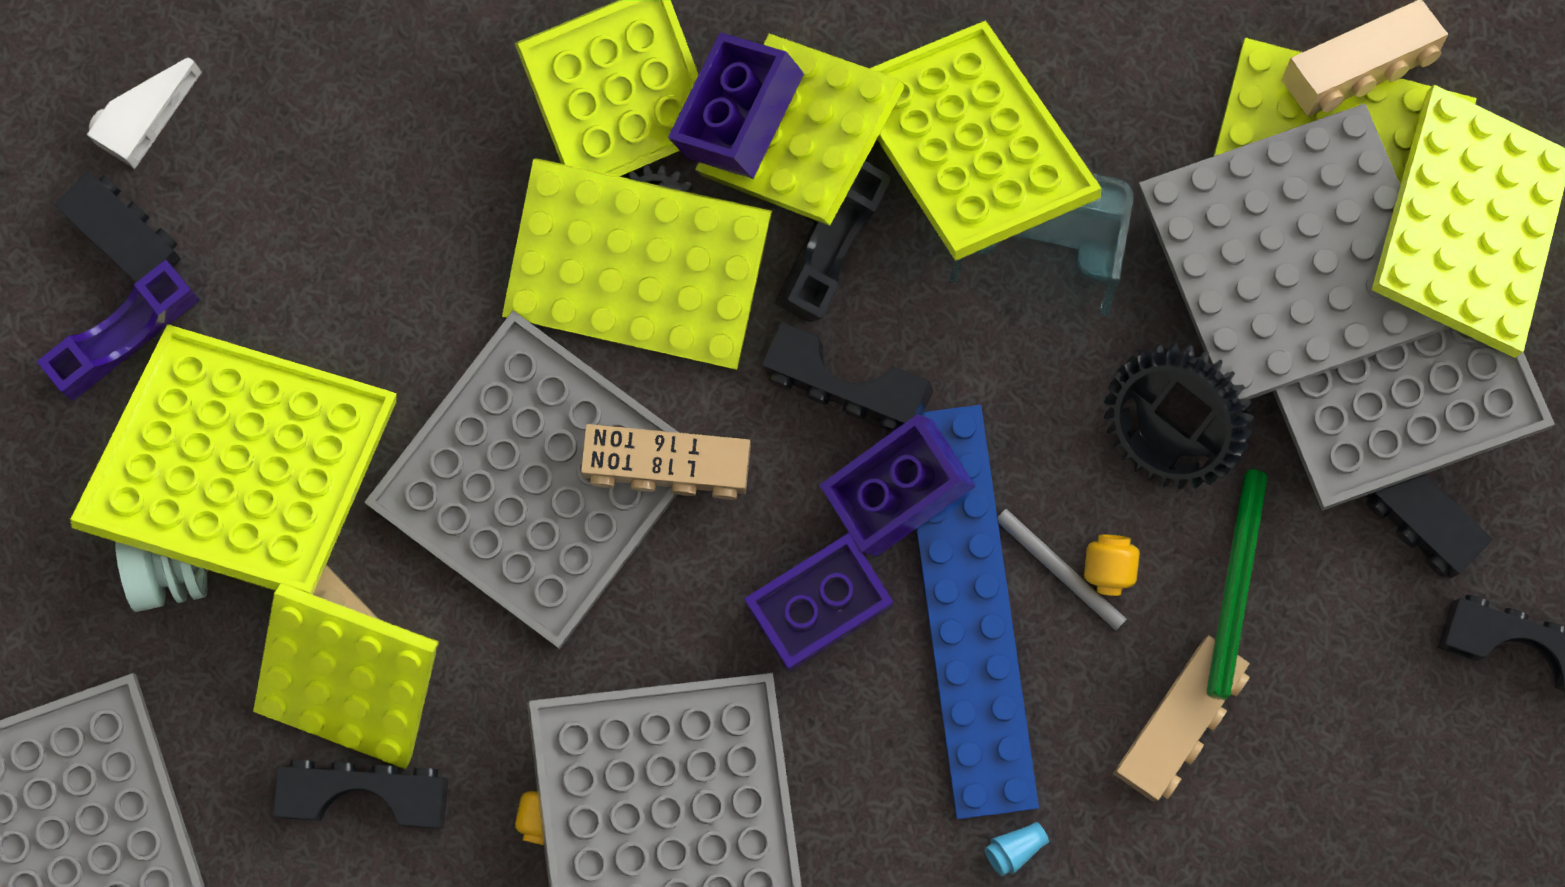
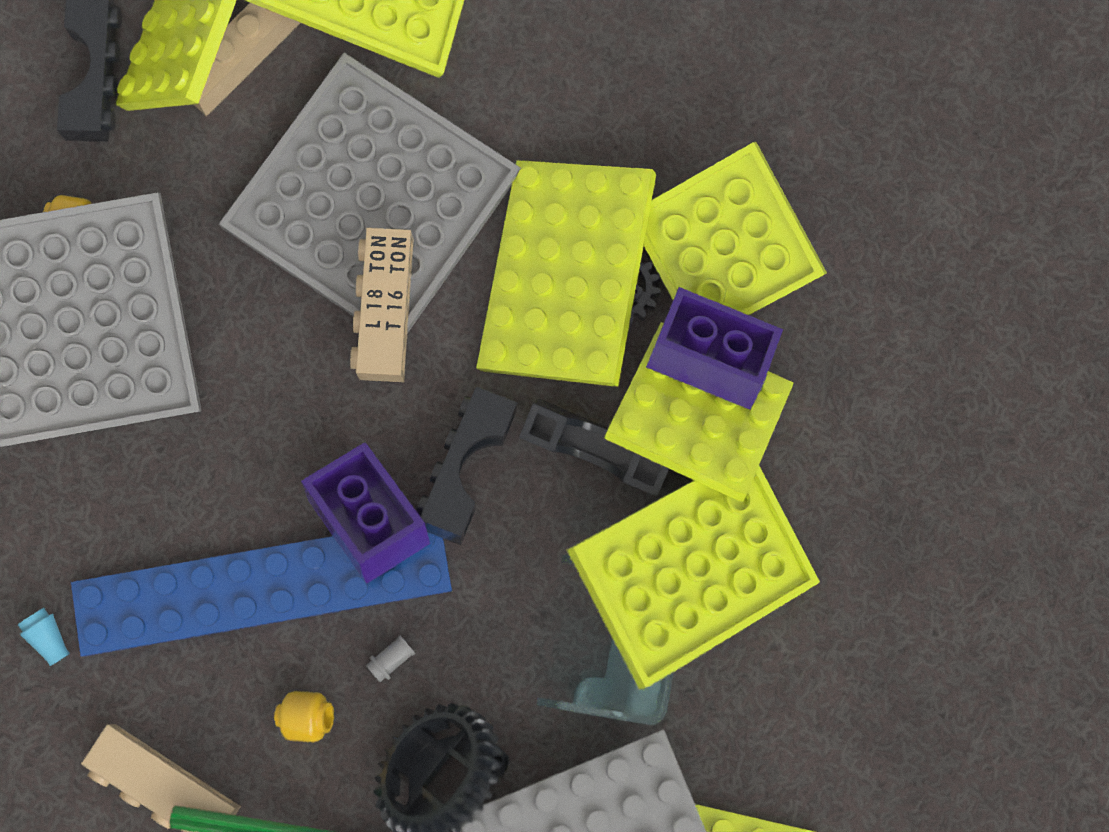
camera: 85 degrees right, 0 degrees up
(818, 602) = (258, 447): dark purple brick -> none
(1052, 473) = (390, 659): none -> light grey pin
(1061, 569) = (301, 670): light grey bar -> none

